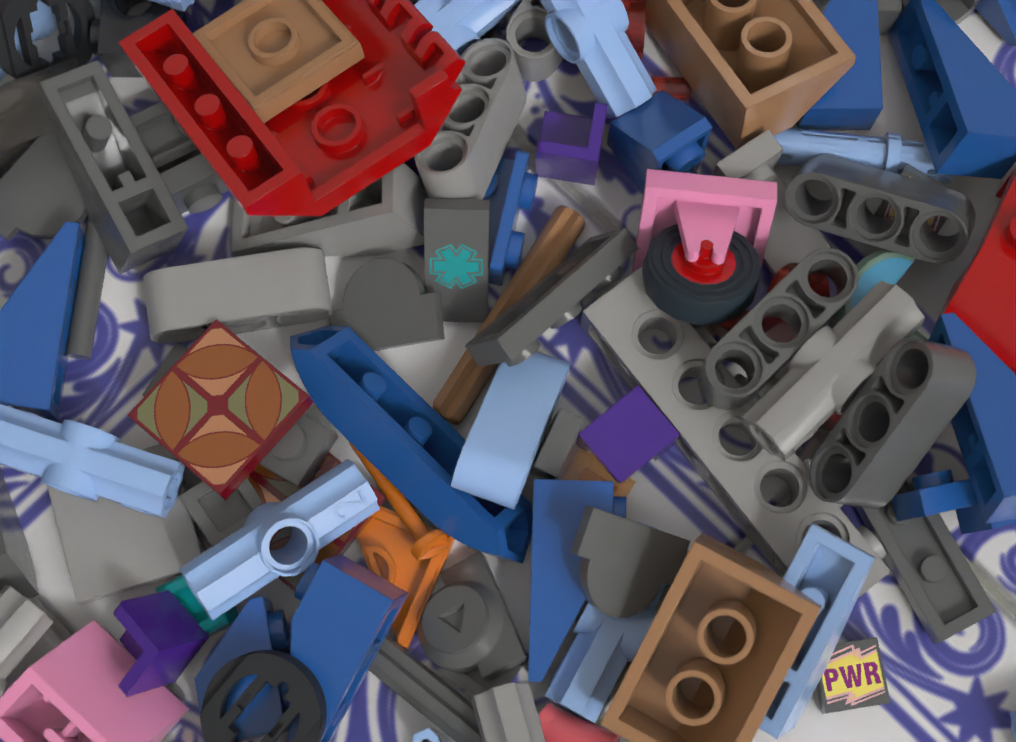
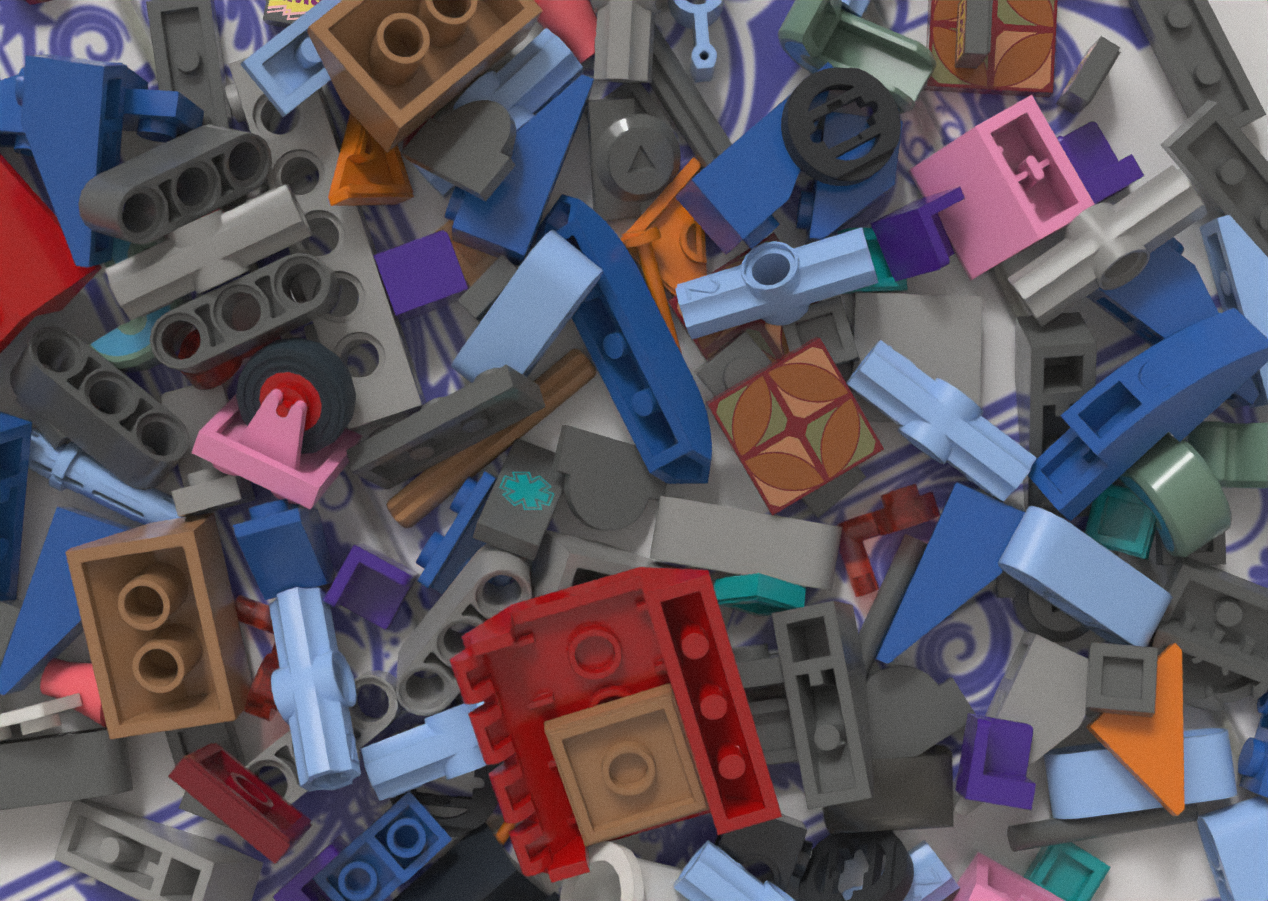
camera: 160 degrees left, 10 degrees up
(98, 370) = (900, 510): none -> clear red plate
(207, 246) = (758, 594): none -> teal tile
(717, 510) = (367, 172): none -> orange tile

